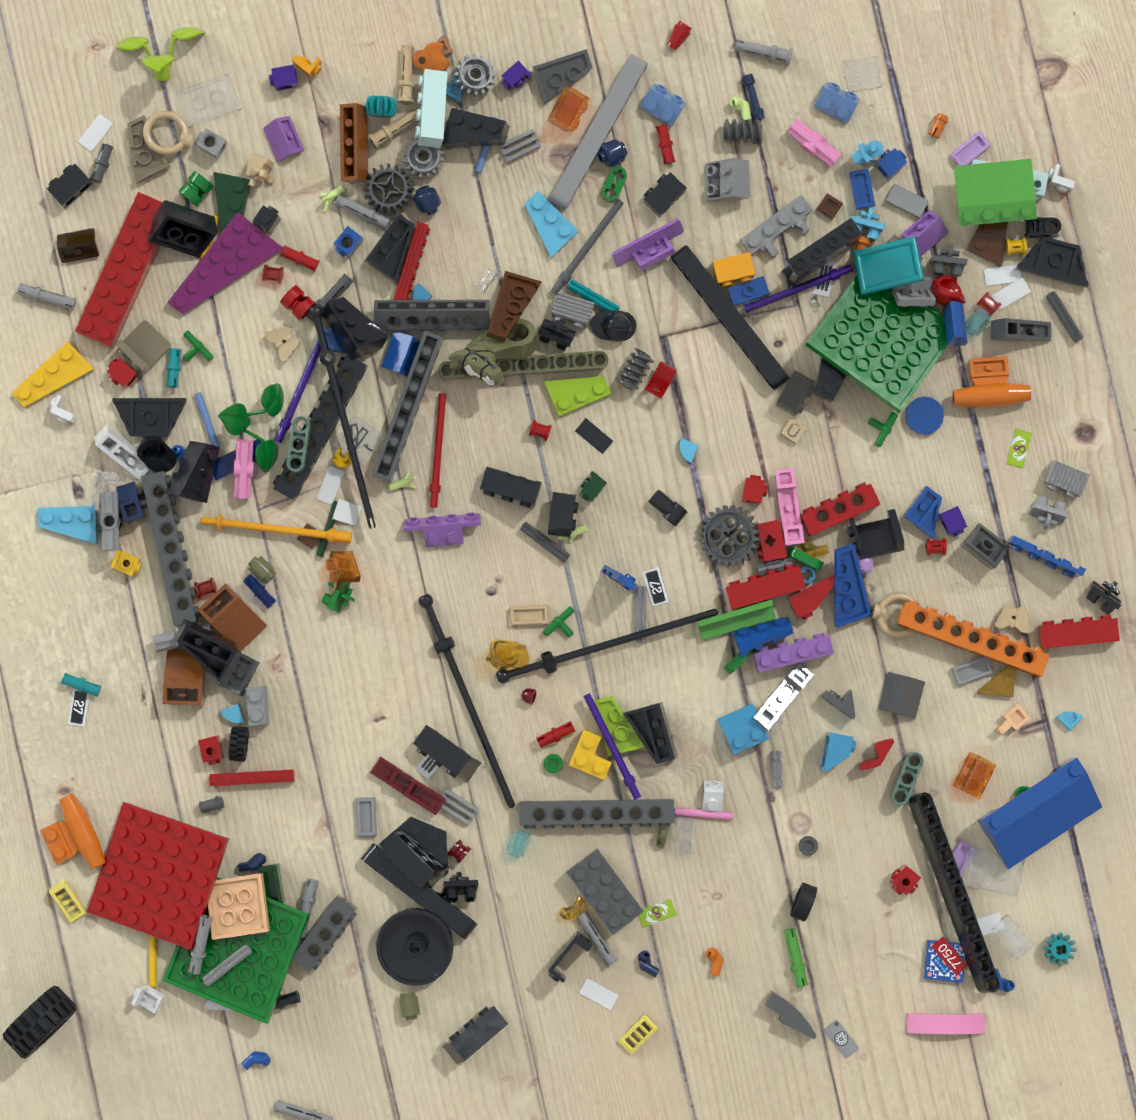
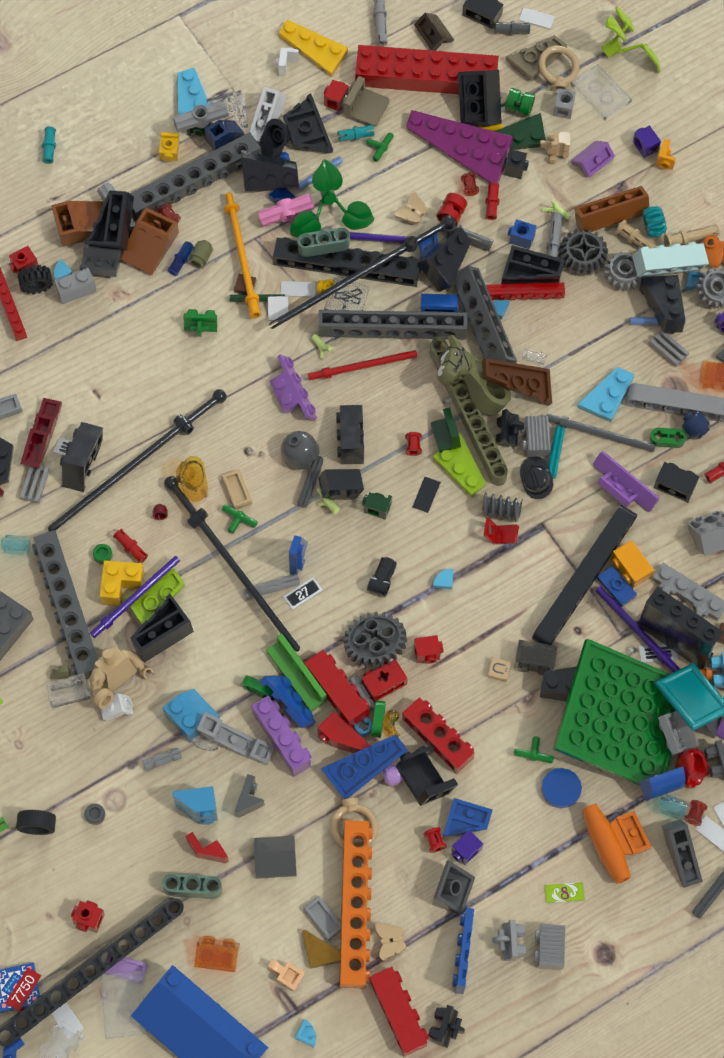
camera: 70 degrees right, 20 degrees down
(78, 708) = (27, 151): sticker -> none
(342, 568) = (225, 314): clear orange bracket -> none
(427, 200) = (587, 285): dark blue head -> none
(511, 542) = (299, 450): none -> dark grey cylinder
(539, 395) = (446, 432): none -> dark green panel
(682, 790) = (111, 672): none -> tan torso
(704, 814) = (97, 711): bright pink bar -> none
(789, 506) = (424, 688): bright pink slope -> none

